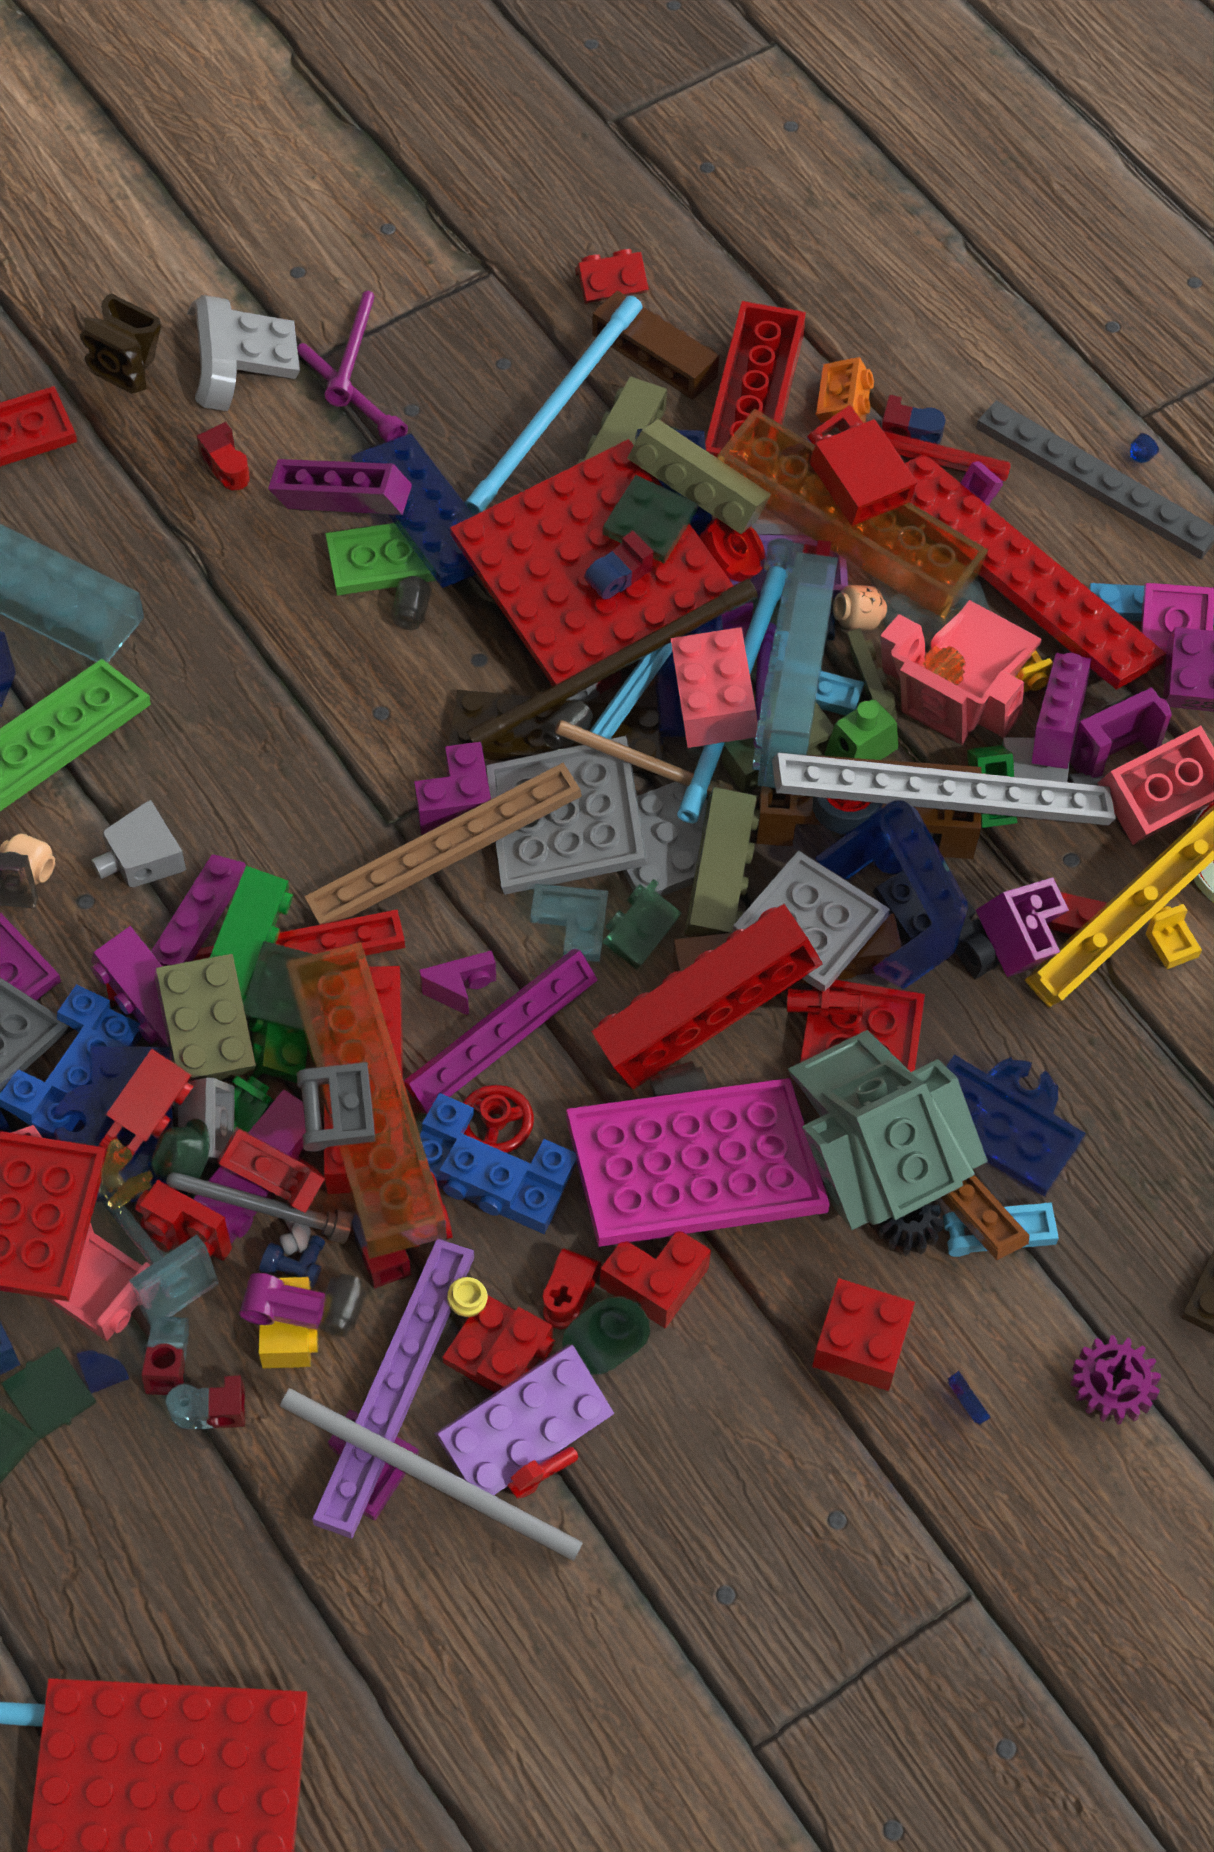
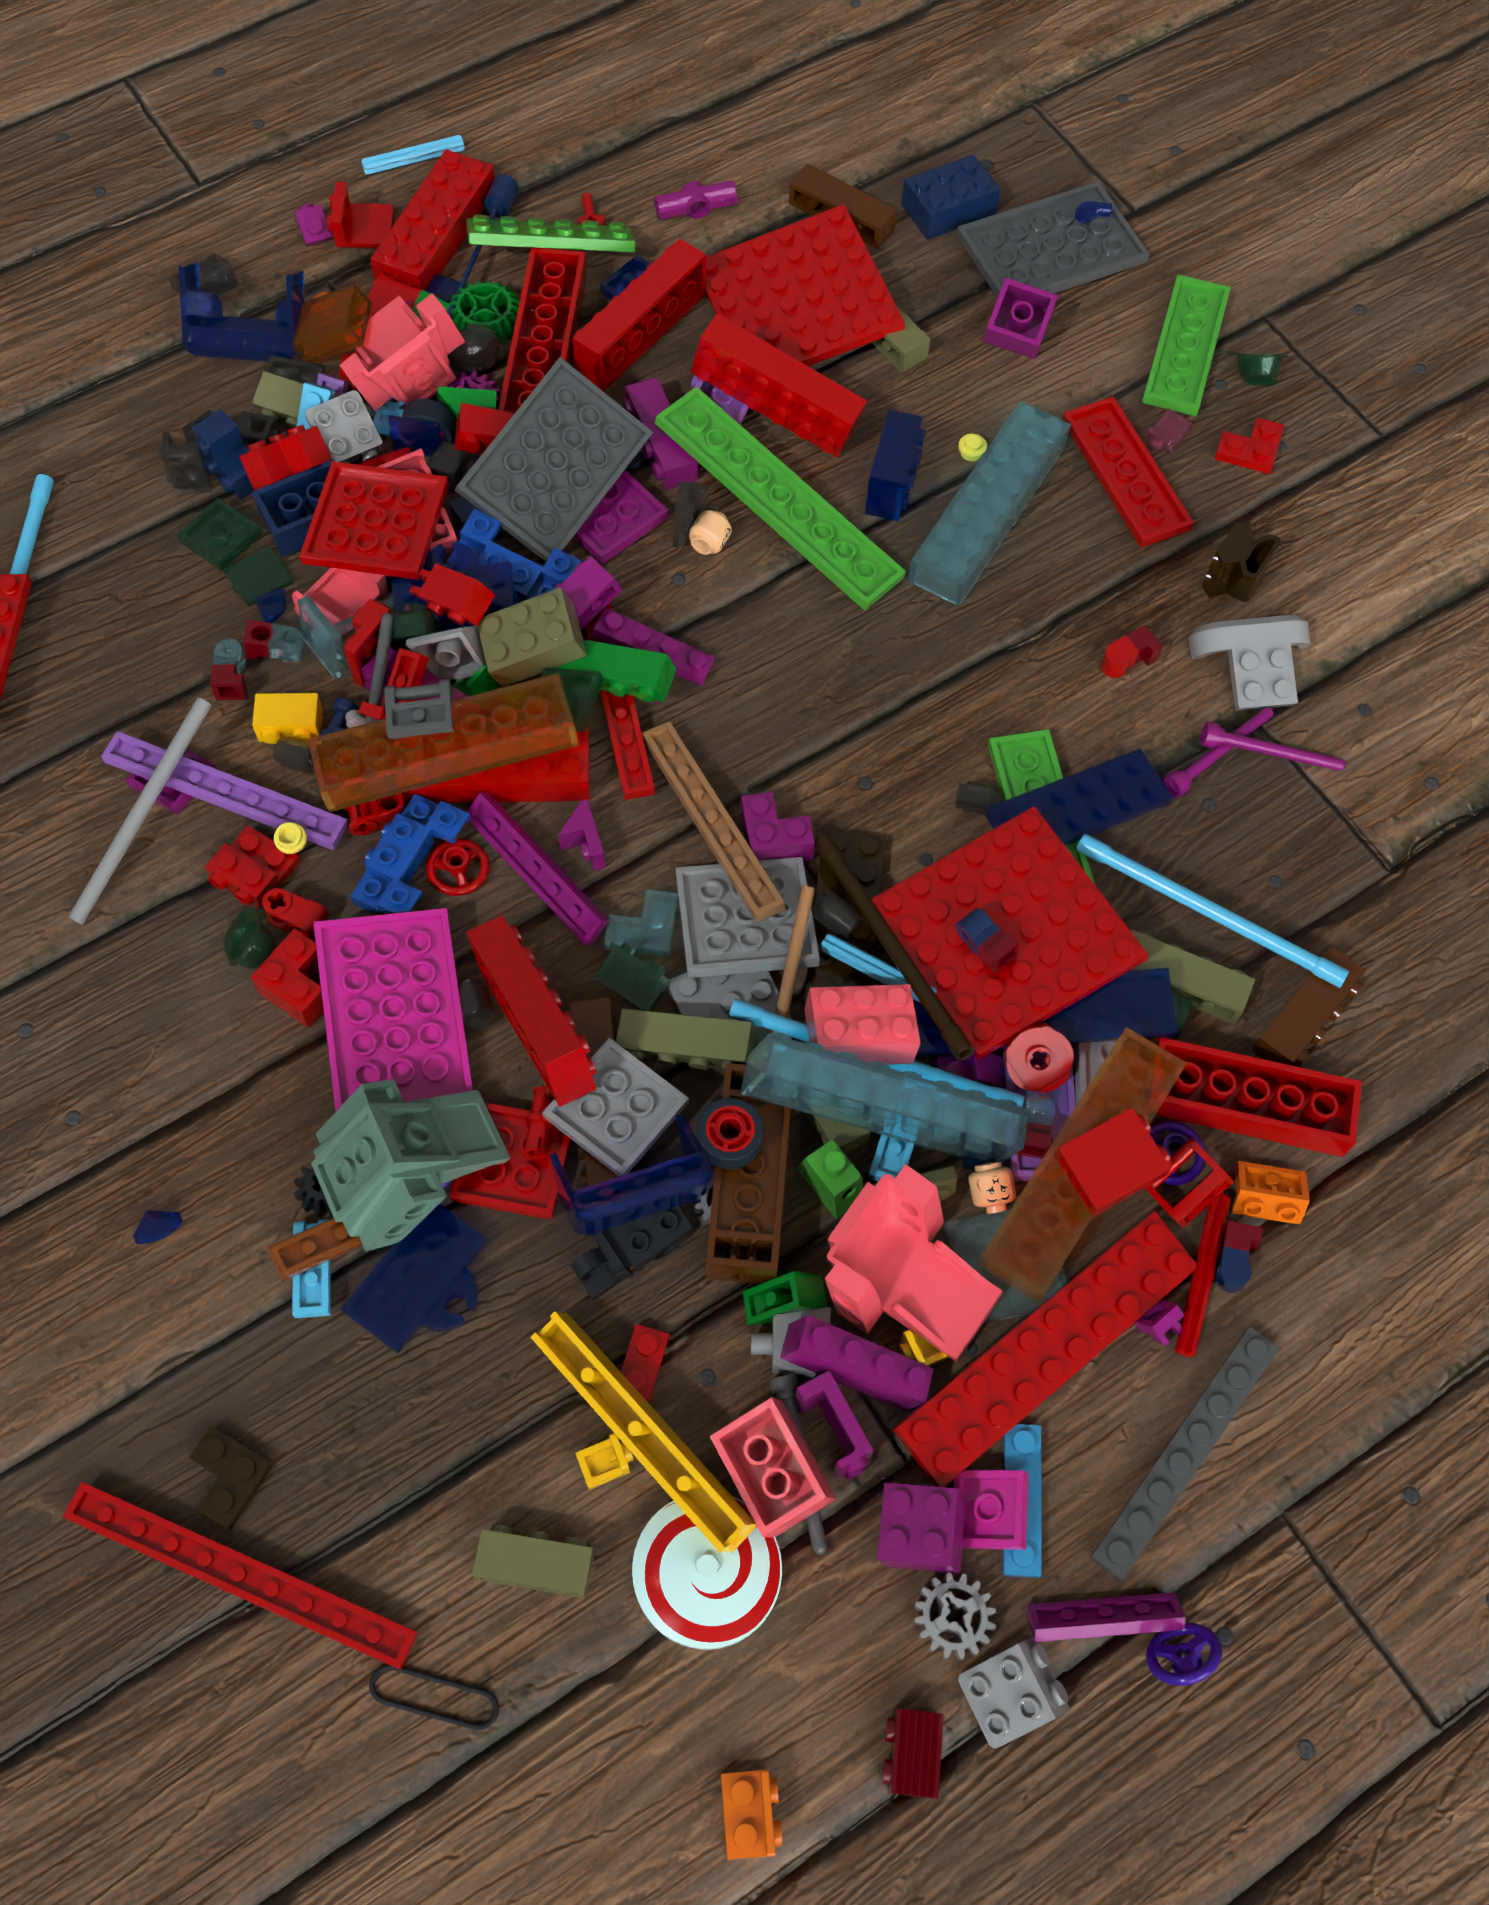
camera: 90 degrees right, 5 degrees up
(116, 1159) = (396, 587): clear yellow piece -> none
(140, 848) = (720, 607): light grey torso -> none
(271, 1300) = (287, 696): magenta piece -> none
(340, 486) = (1087, 729): magenta brick -> none
(525, 1421) = (179, 880): medium lavender plate -> none
(530, 1475) = (141, 895): red bar -> none
(605, 276) = (1394, 973): red bracket -> none
(652, 514) = (1048, 969): clear green plate -> none
(699, 476) = (1102, 1013): olive brick -> none
(863, 1334) = (220, 1139): red brick -> none
(942, 789) = (733, 1223): light grey plate -> none
(946, 663) = (894, 1241): clear orange gear -> none
(1019, 927) = (609, 1293): magenta brick -> none
(1098, 1373) = (144, 1366): magenta gear -> none
(1143, 448) = (1229, 1504): clear blue hinge -> none

